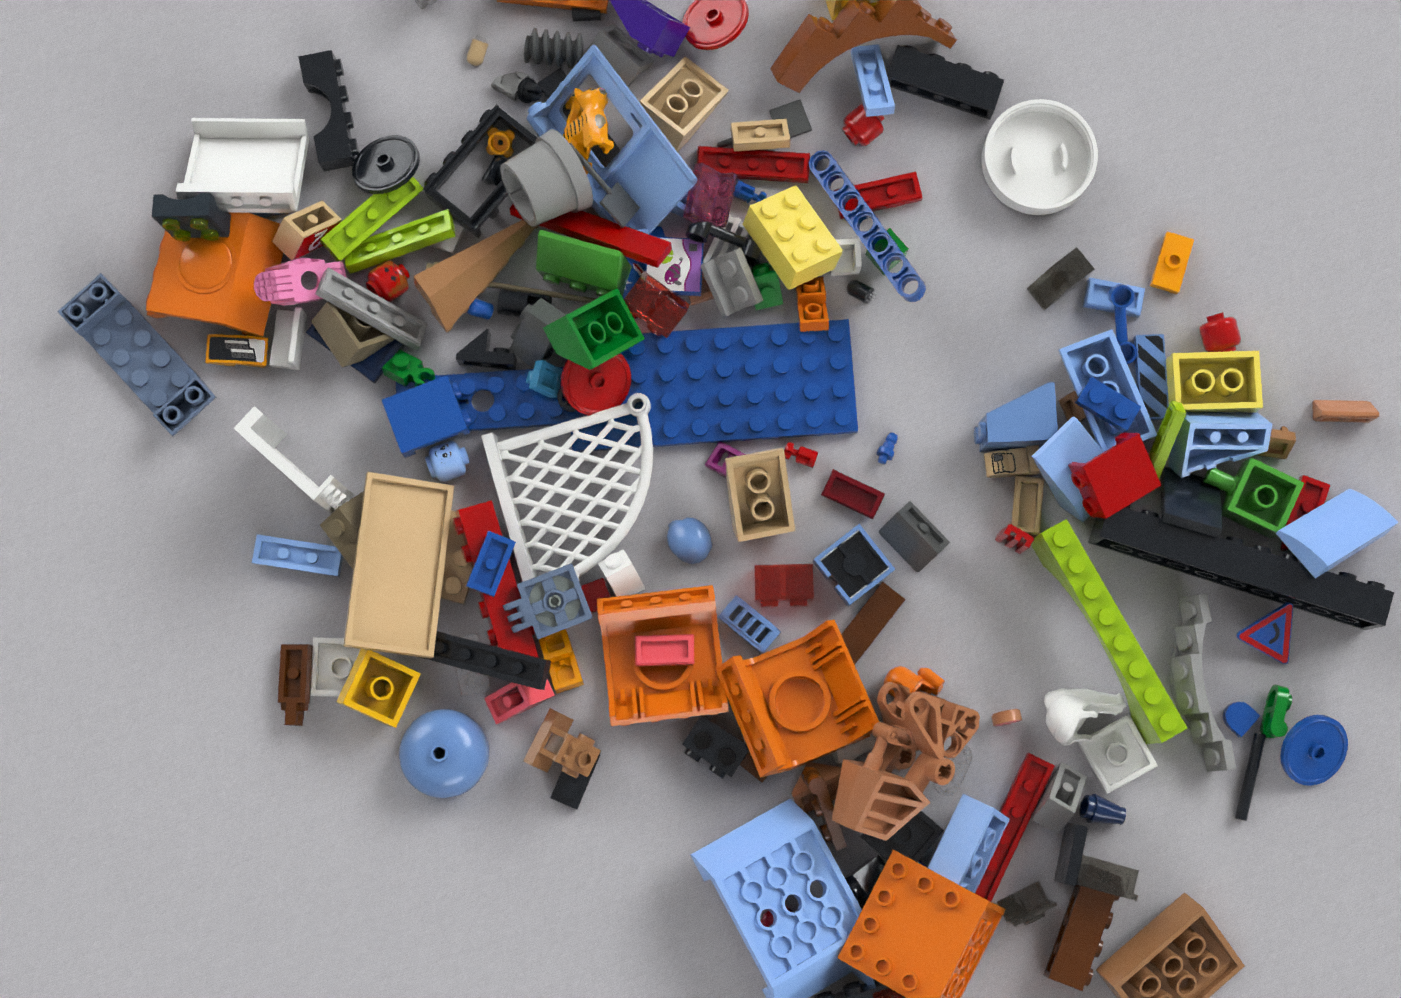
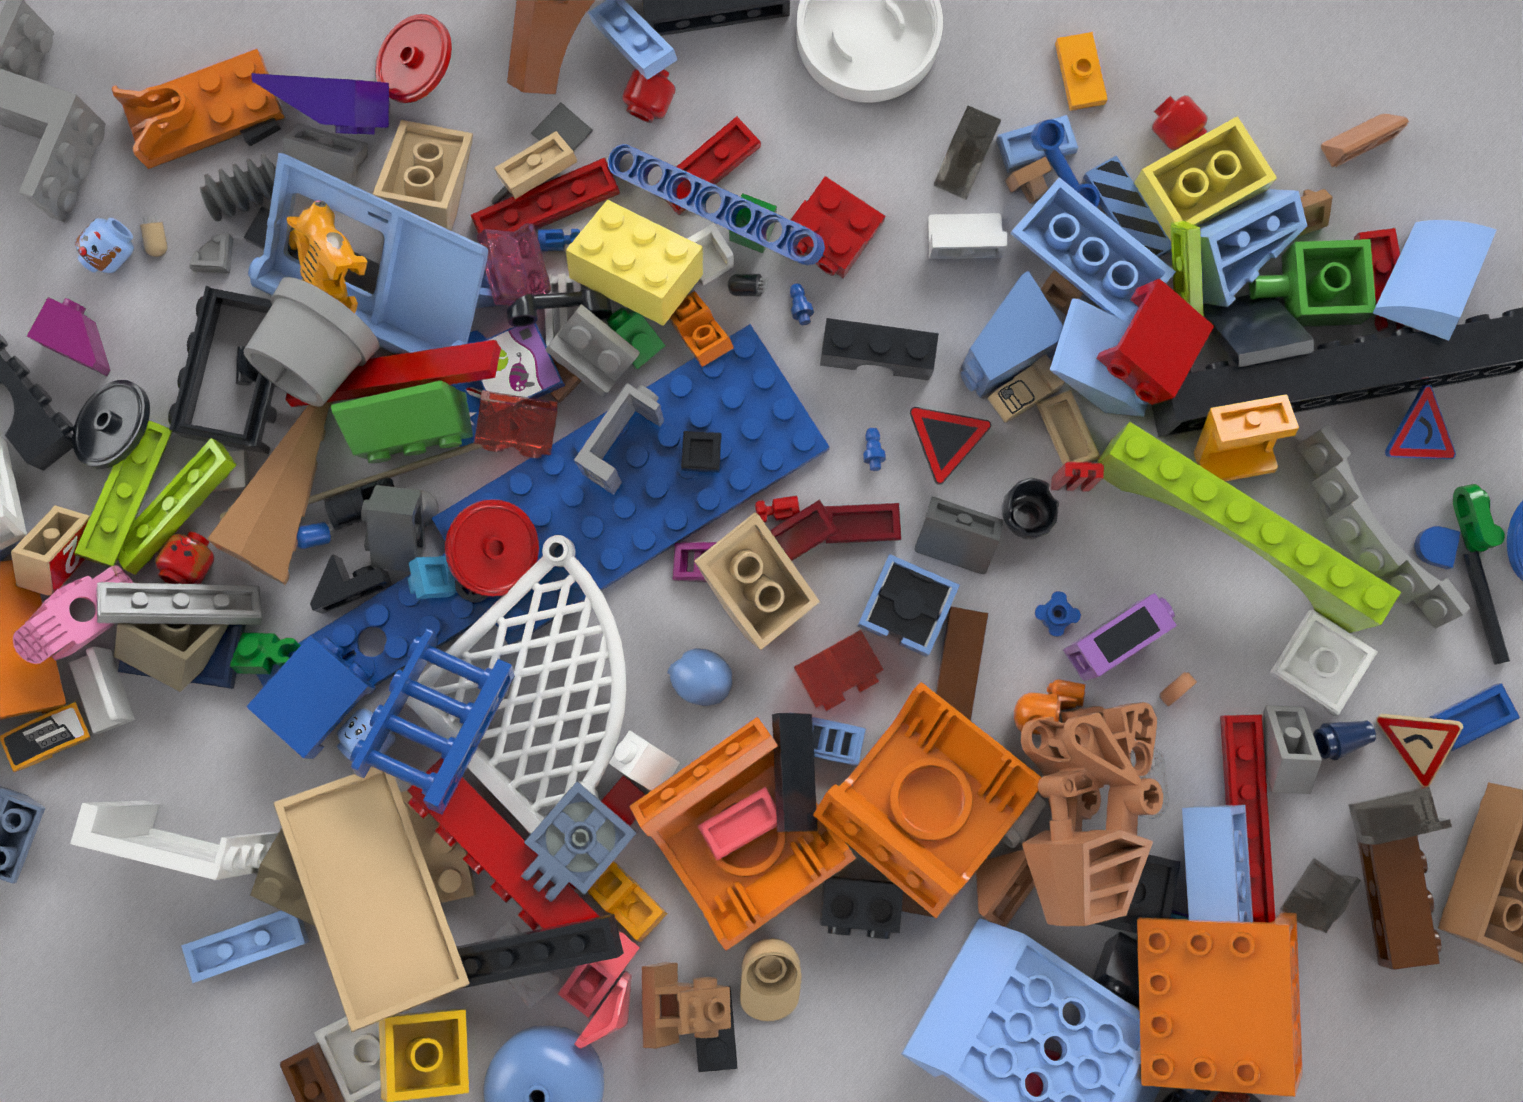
camera: 25 degrees left, 0 degrees up
(389, 89) = (70, 333): none -> magenta slope
(442, 40) = (104, 245): none -> light blue head
(490, 563) = (480, 834): blue plate -> none
(493, 146) = (225, 325): light orange plate -> none
(502, 501) = (455, 751): none -> blue fence
(513, 728) = (611, 1015): none -> coral slope
(528, 90) = (237, 252): black piece -> none
(595, 331) = (459, 491): green slope -> none
(617, 200) = (405, 323): dark grey piece -> none
(629, 763) = (770, 980): none -> tan cap
(692, 354) = (590, 456): none -> light grey panel
(718, 634) = (794, 772): none -> black tile
(769, 388) = (701, 451): none -> black tile
(810, 478) = (805, 530): none -> dark red tile
(823, 807) = (1026, 910): reddish brown plate -> none
(889, 326) = (801, 308): none -> blue piece
(937, 387) = (902, 350): none -> black arch
(940, 467) = (946, 438): none -> piece
(946, 283) = (841, 221): none -> red plate
(948, 632) = (1068, 614): none -> blue plate
(971, 544) = (1030, 509): none -> black hair
(985, 660) = (1121, 636): none -> brick
(1029, 335) = (966, 236): none -> white panel
(1070, 708) = (1247, 634): white piece -> none
(1071, 854) = (1340, 810): black tile -> none
(1094, 320) = (1030, 180): none -> medium nougat tile
(1108, 404) = (1102, 265): blue plate -> none
(1141, 572) = (1241, 437): none -> light orange panel
(1152, 841) = (1421, 742): none -> piece
(1201, 845) = (1480, 714): none -> blue tile

